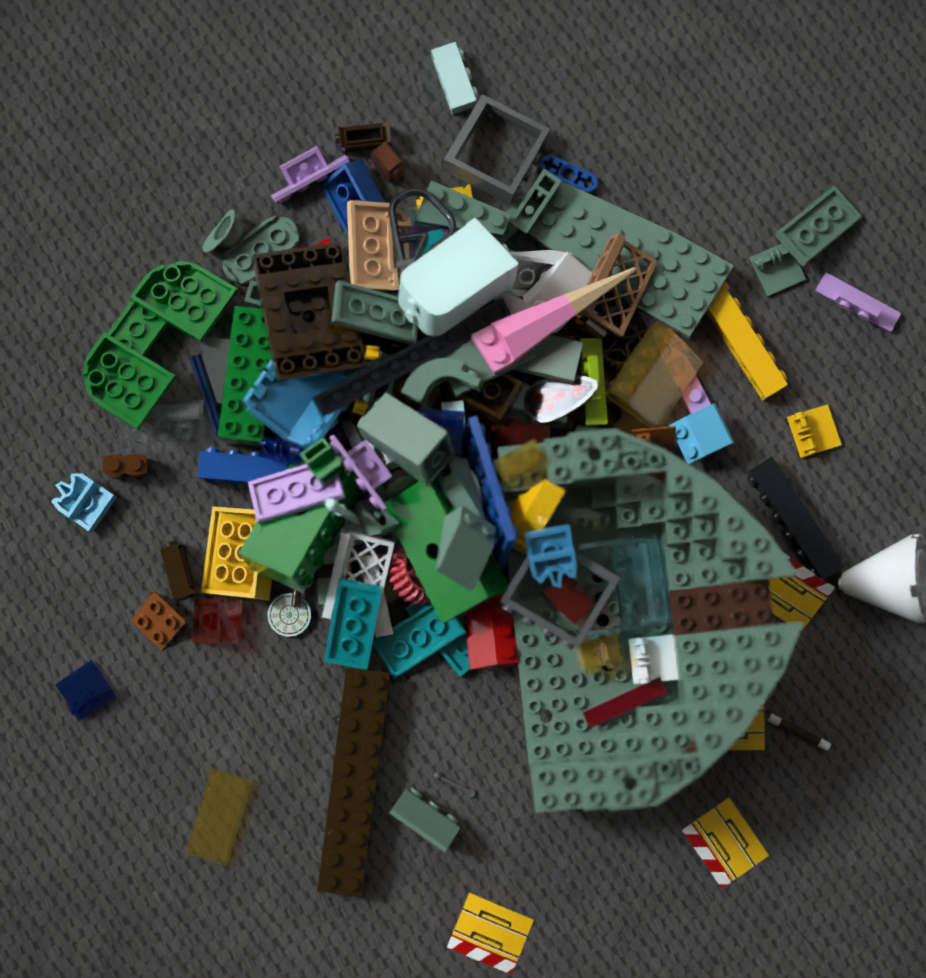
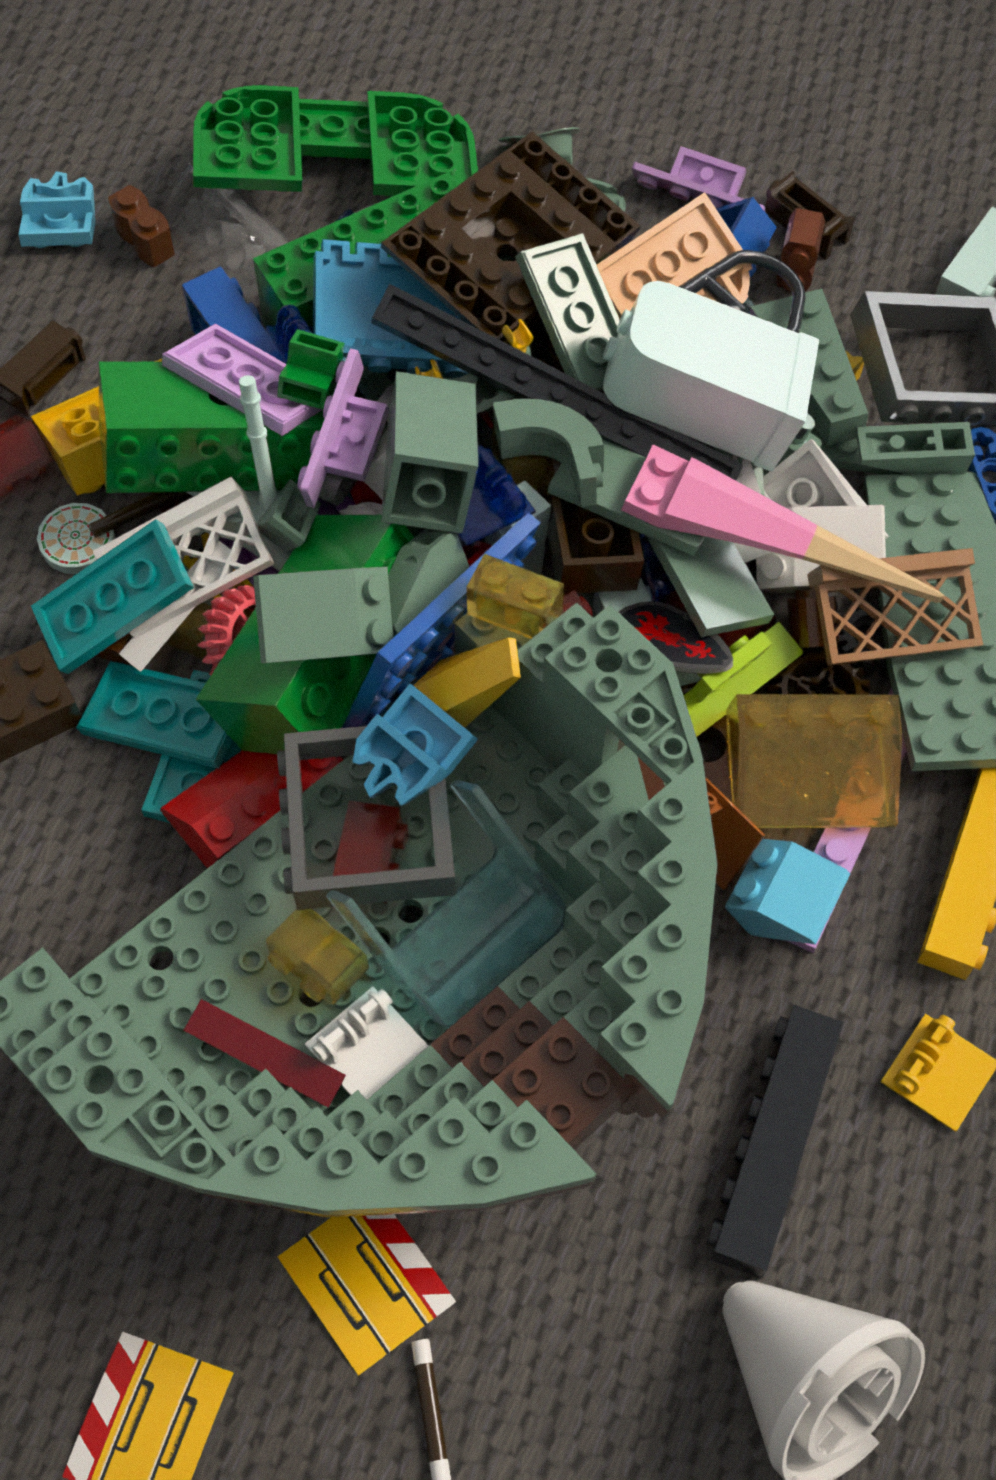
camera: 55 degrees right, 20 degrees down
(798, 596) = (655, 1209): yellow sticker -> none

